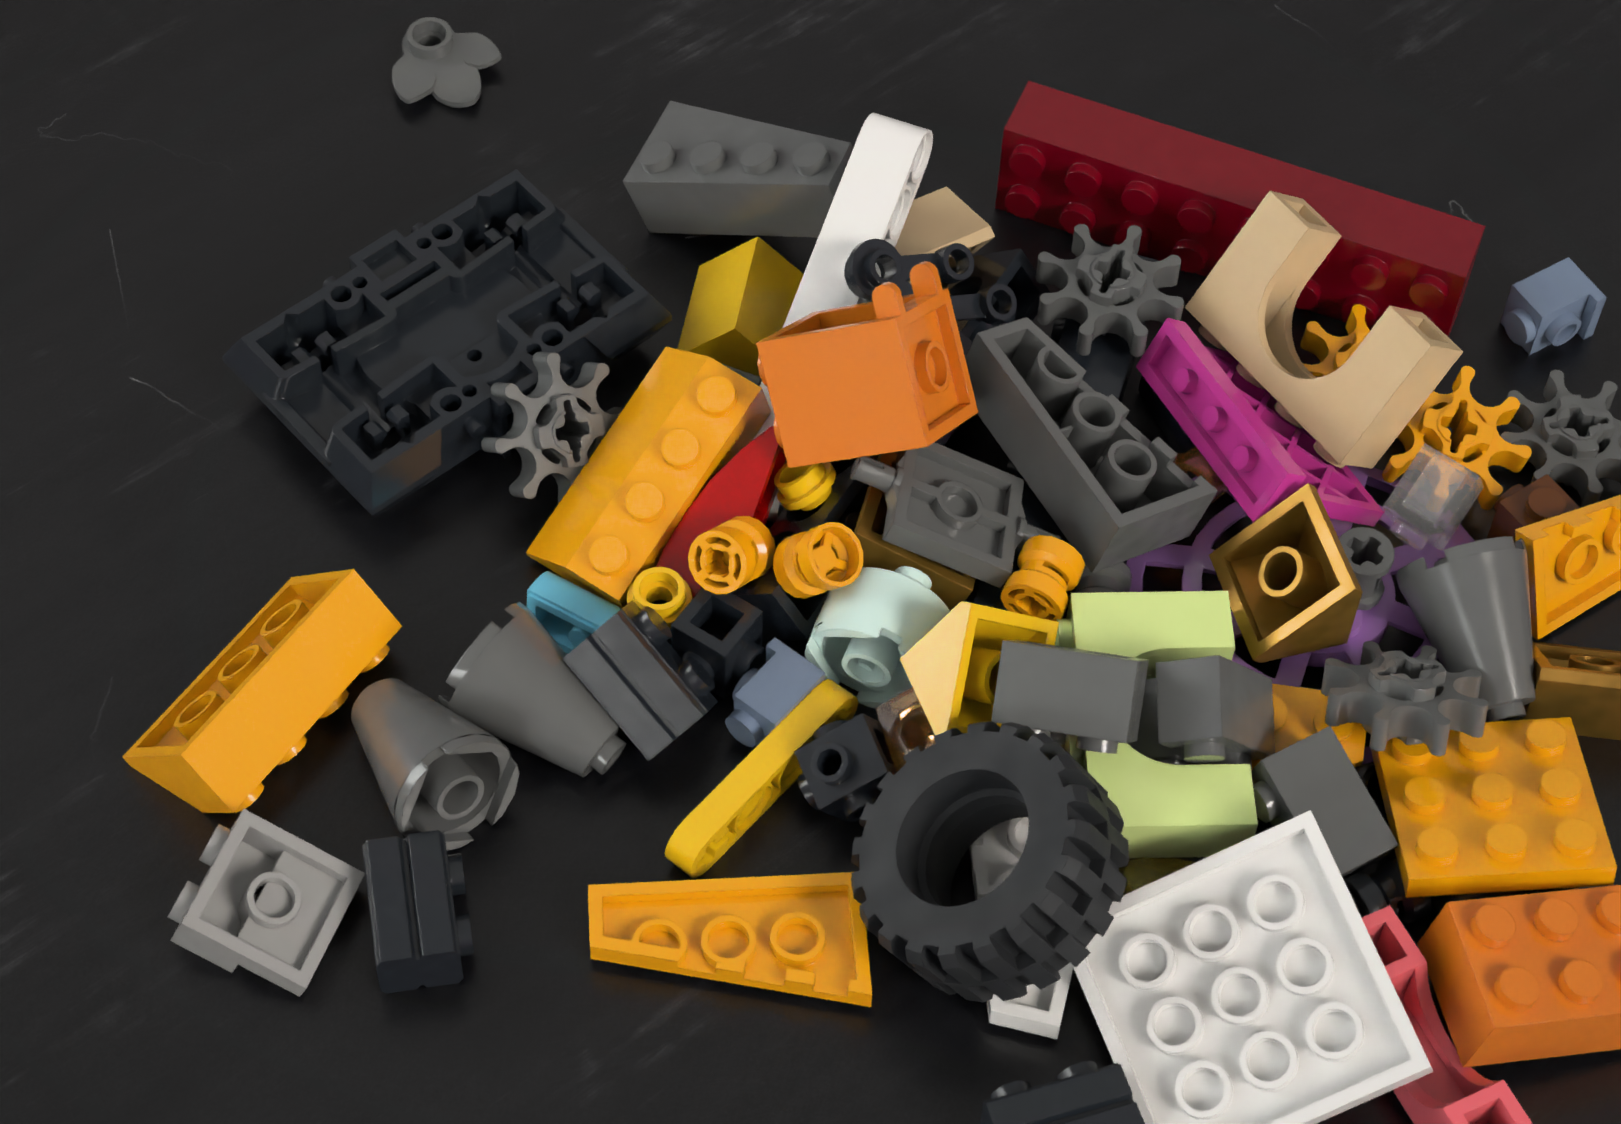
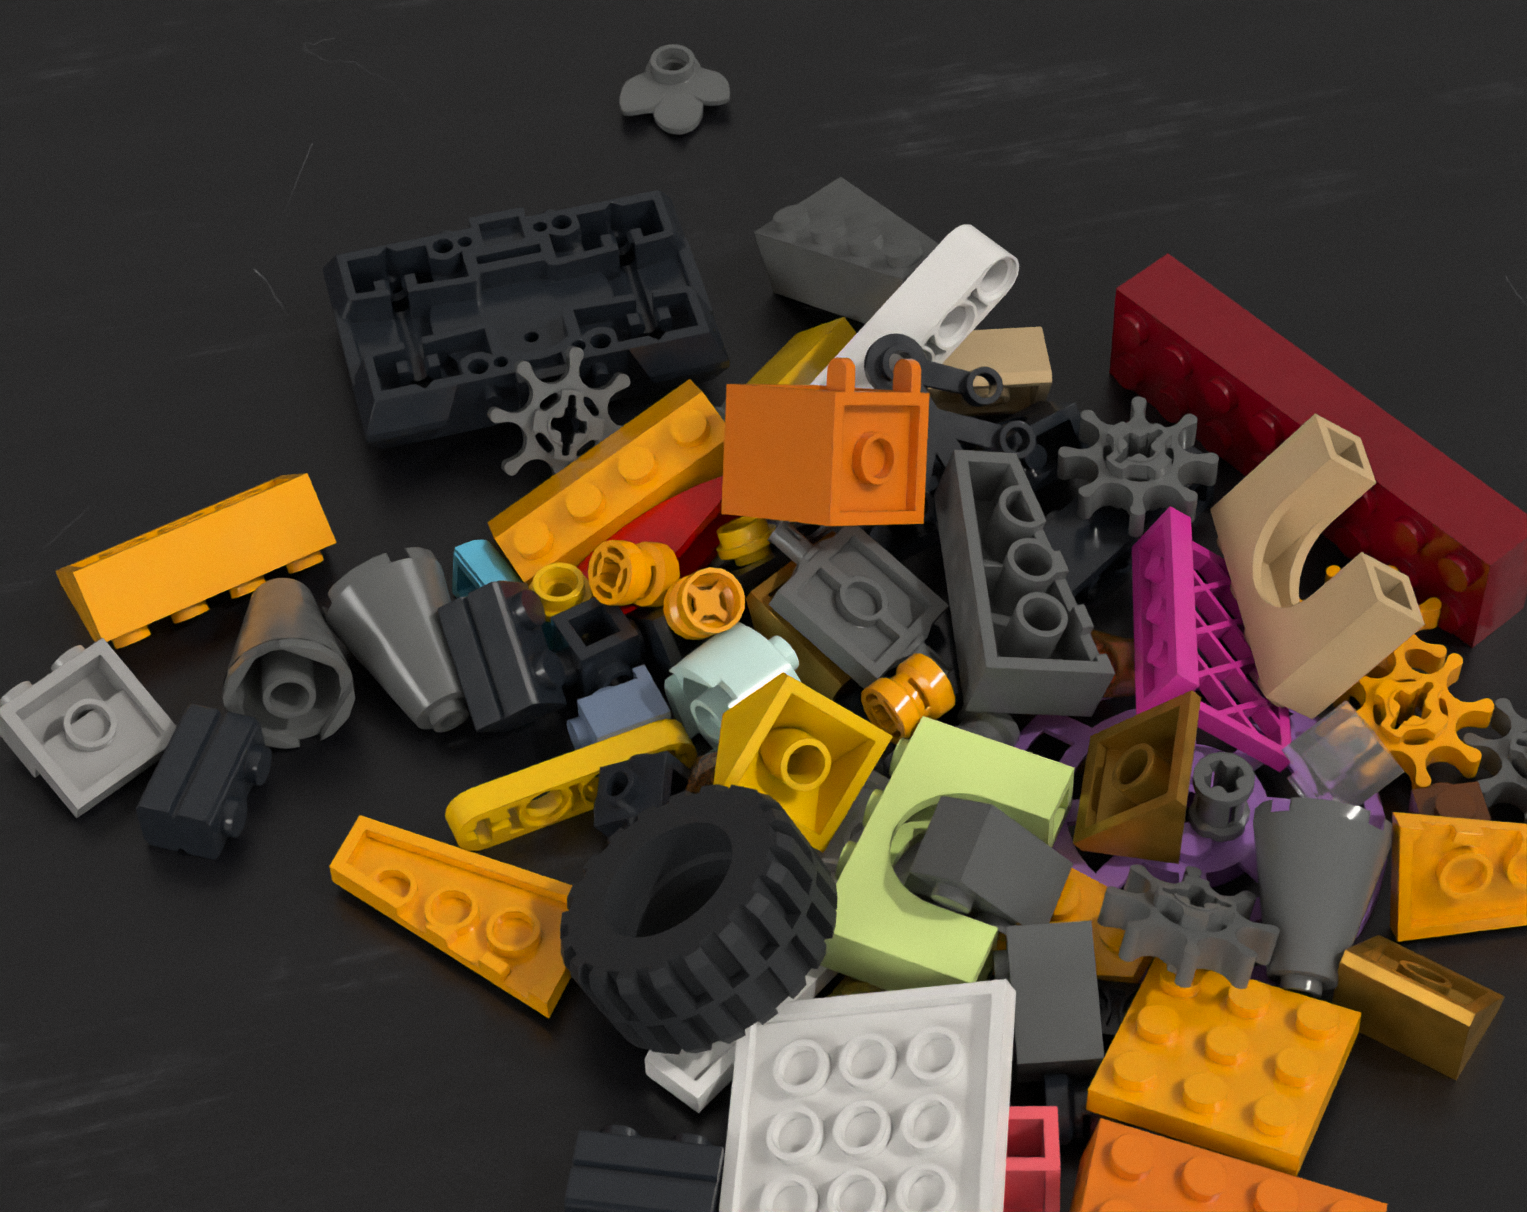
camera: 30 degrees right, 5 degrees down
(1071, 693) = (849, 795): dark grey brick -> none

